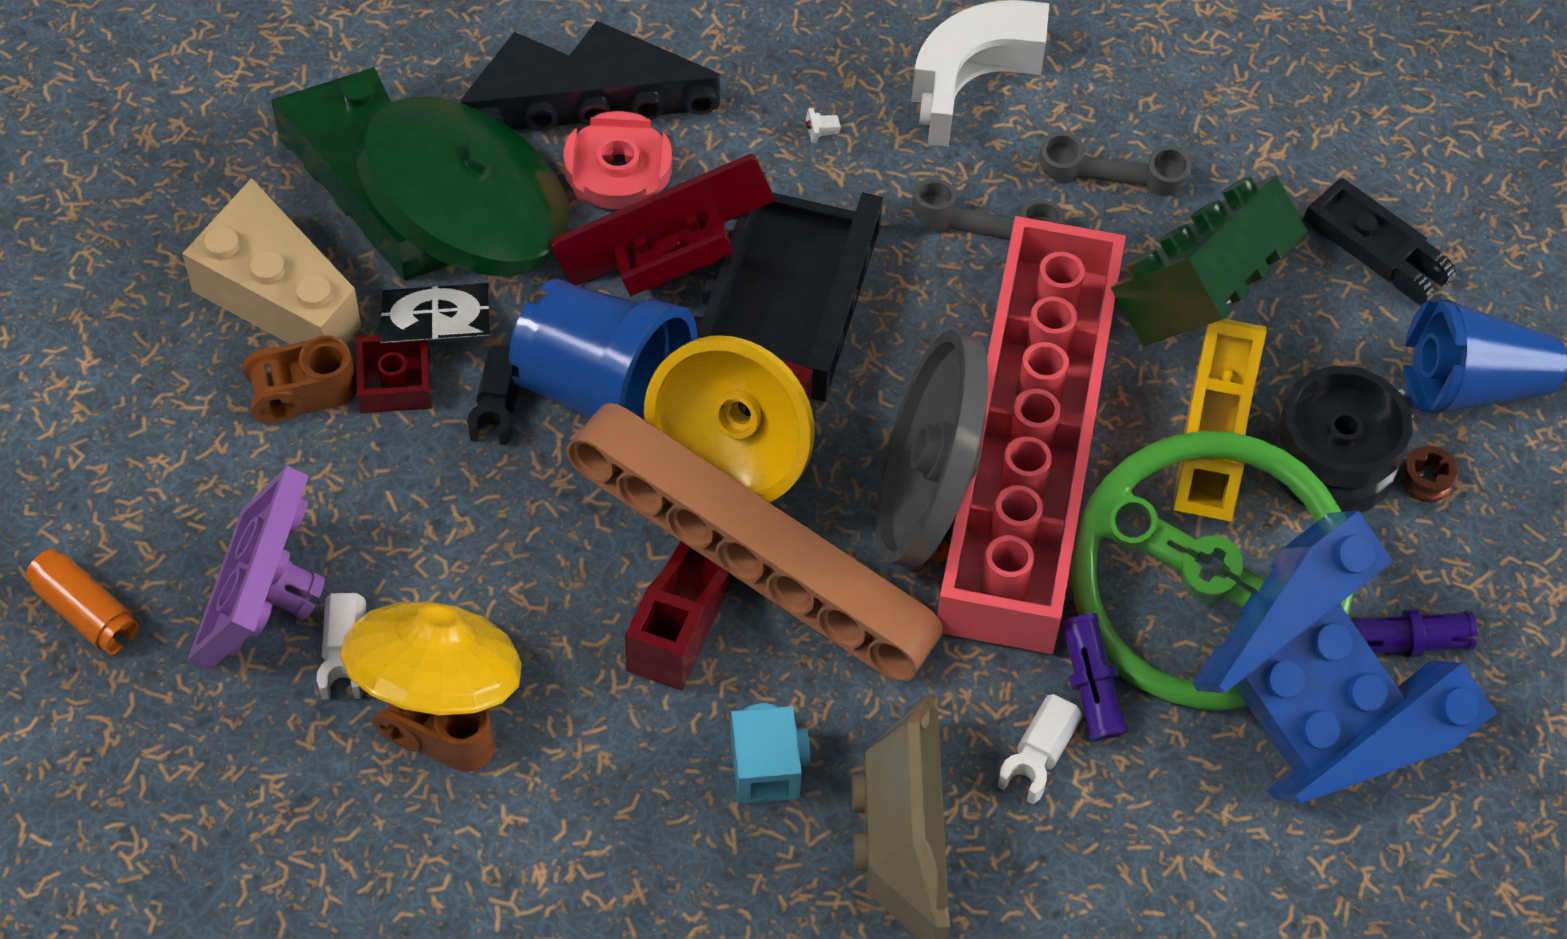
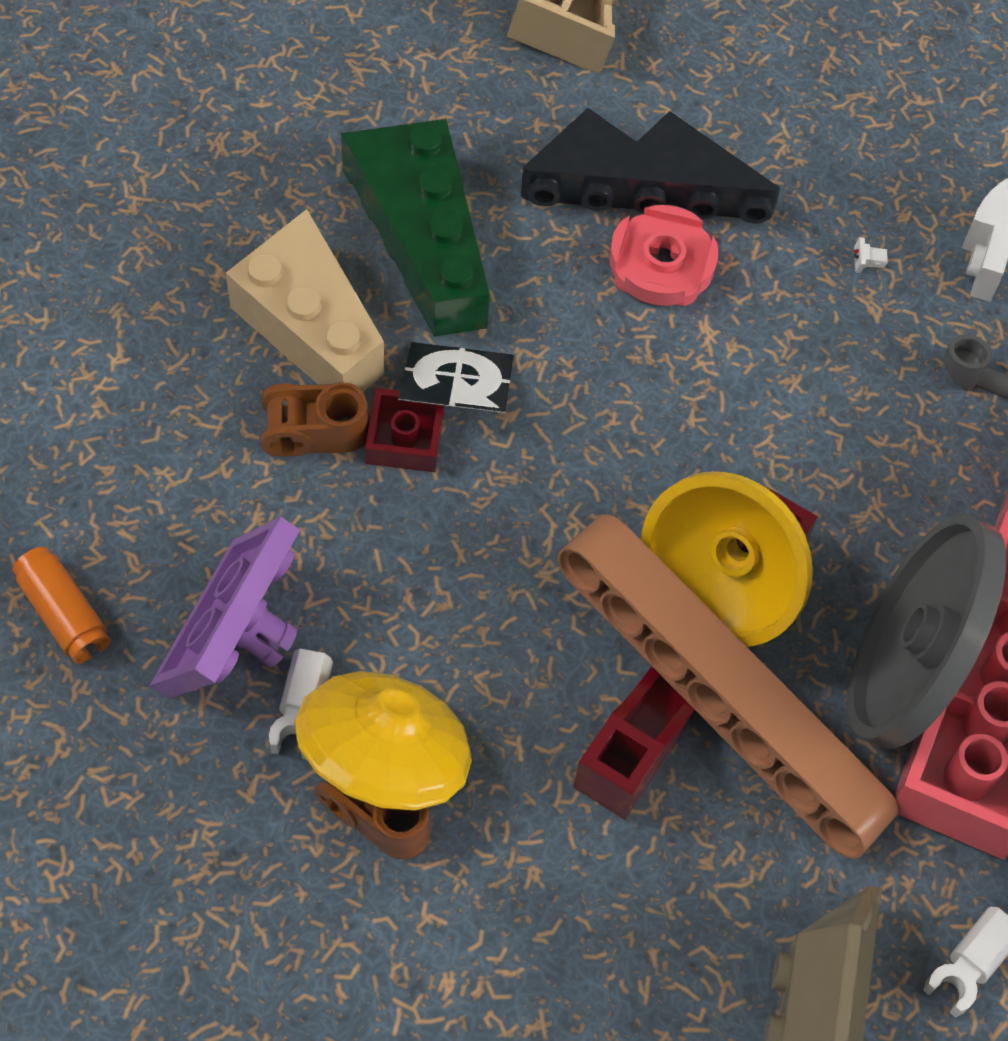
camera: 10 degrees right, 5 degrees up
(462, 186) = (507, 256): dark green dish -> none
(495, 395) = (501, 470): black bar -> none
(595, 346) = (609, 451): blue piece -> none
(666, 231) = (699, 341): dark red bracket -> none
(768, 753) = (698, 908): medium azure brick -> none
(794, 280) = (807, 412): black panel -> none

